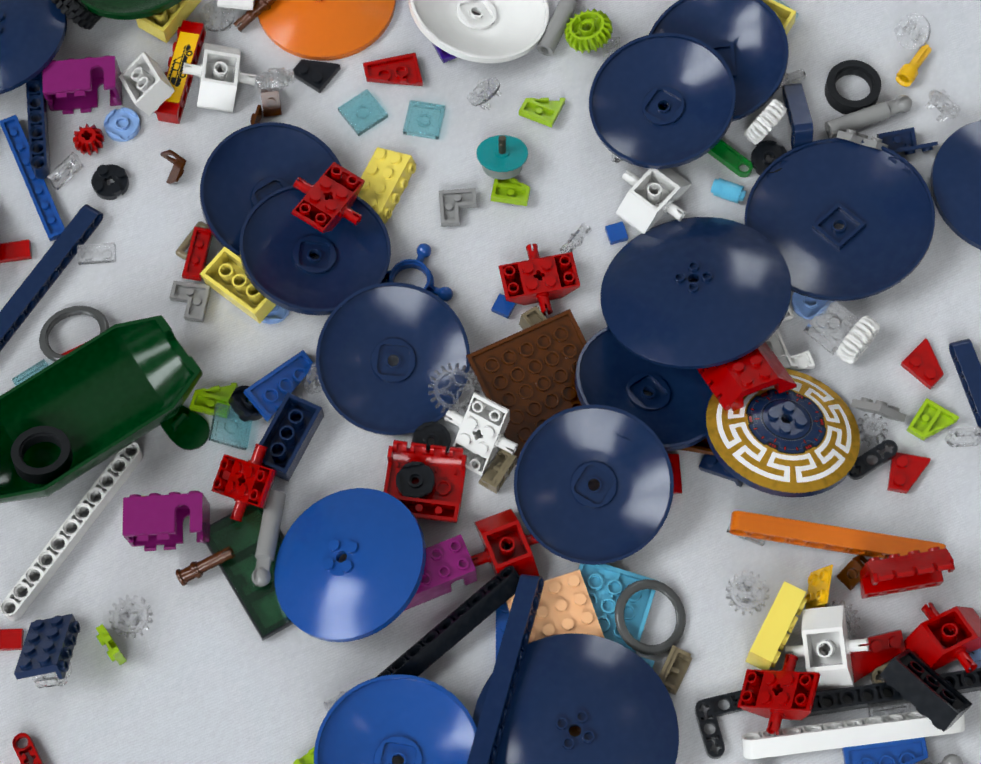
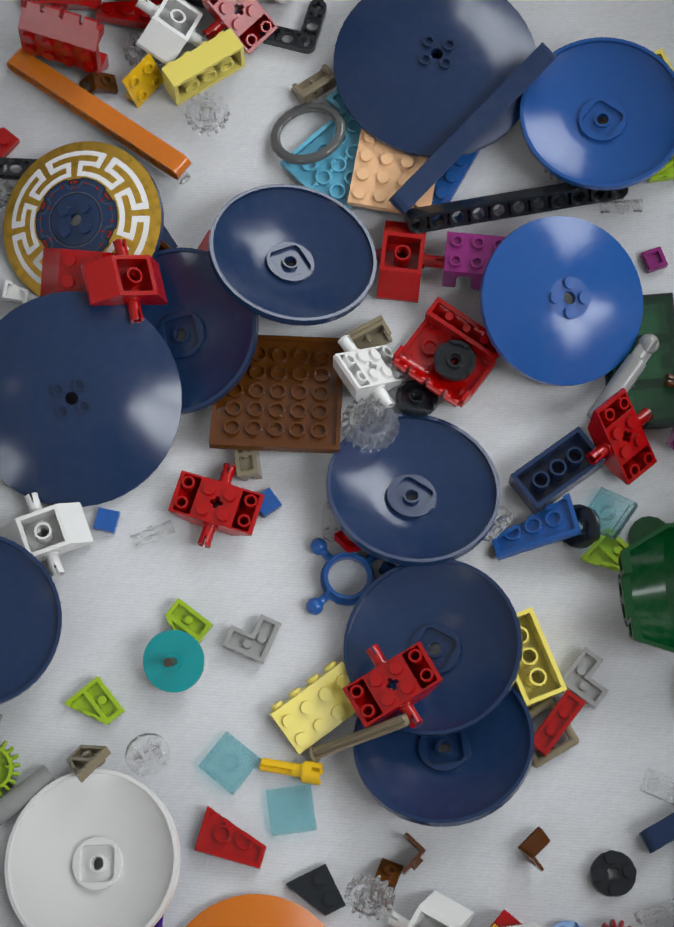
camera: 155 degrees left, 5 degrees up
(293, 666) = (654, 259): none -> magenta tile
(345, 160) = (358, 737): none -> dark tan axle
(364, 137) = (308, 771): none -> yellow piece
(522, 61) = (87, 759): none -> dark tan wing
(723, 370) = (124, 280): none -> red slope

